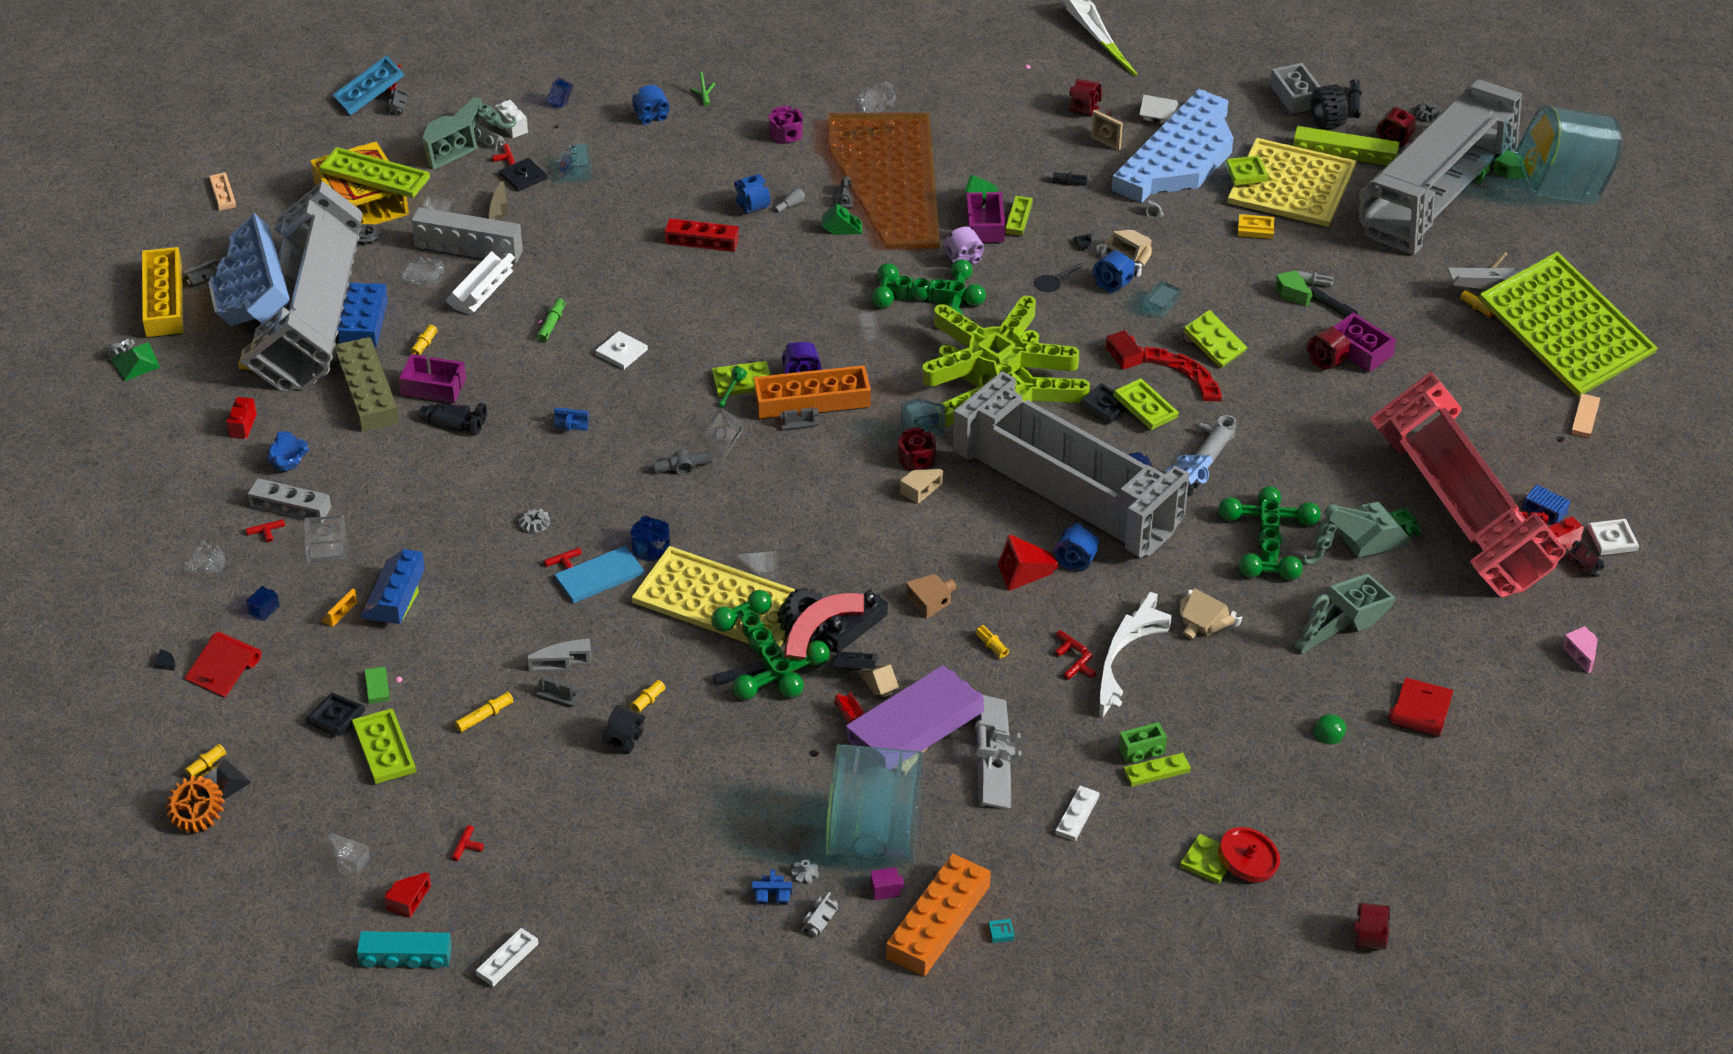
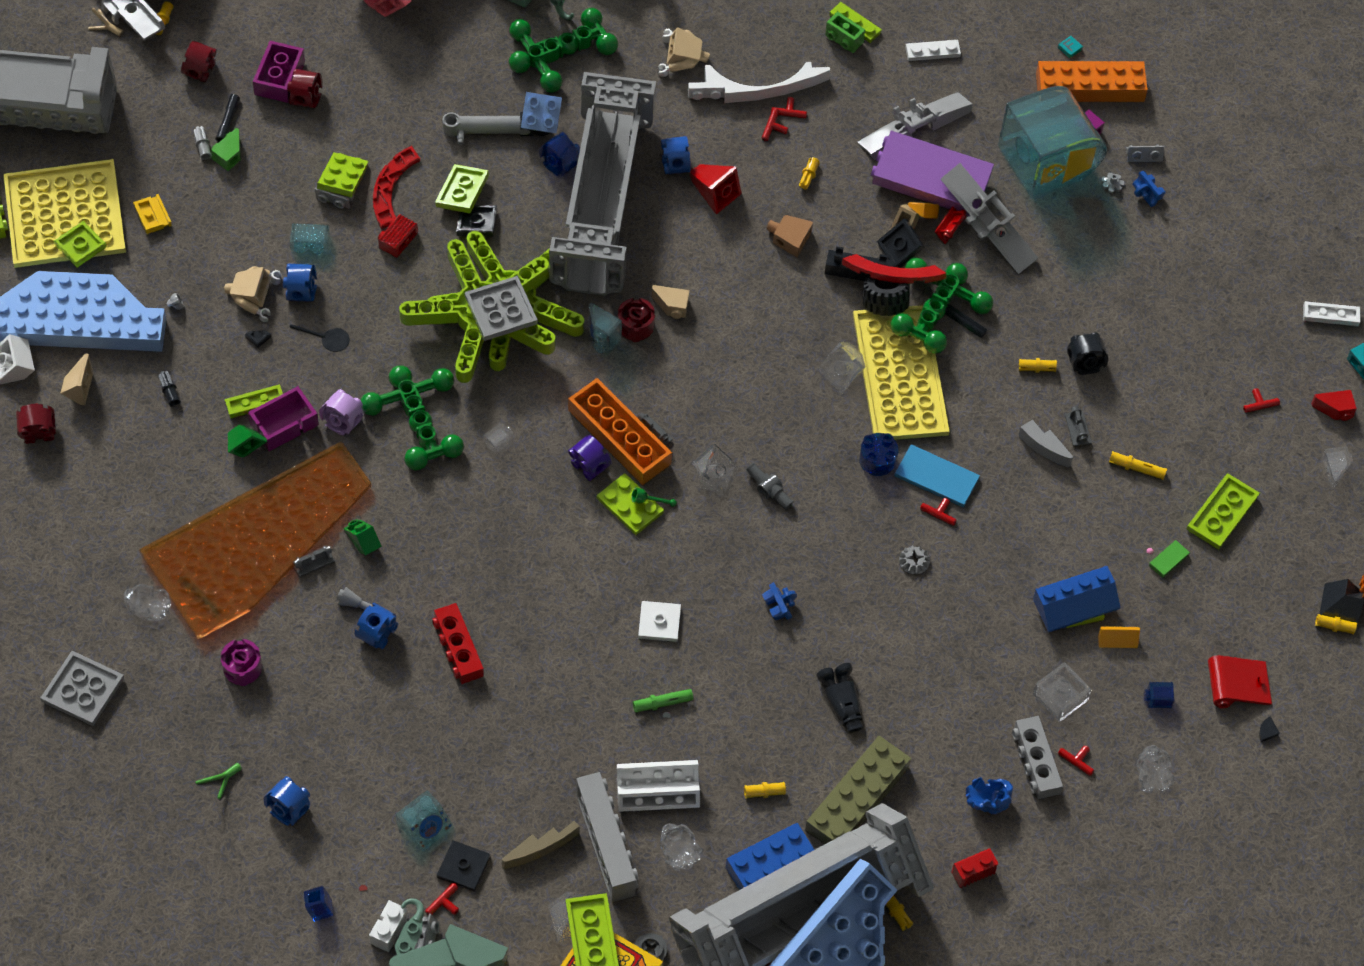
camera: 125 degrees left, 15 degrees up
(335, 714) = (1221, 565): black plate -> none
(440, 385) = (816, 739): magenta piece -> none
(837, 55) = (82, 688): none -> light grey plate
(852, 724) = (984, 222): none -> light grey piece
(879, 688) = (925, 209): none -> light orange slope
(979, 345) = (501, 308): none -> light grey plate
(1406, 298) = (198, 61): none -> dark red brick

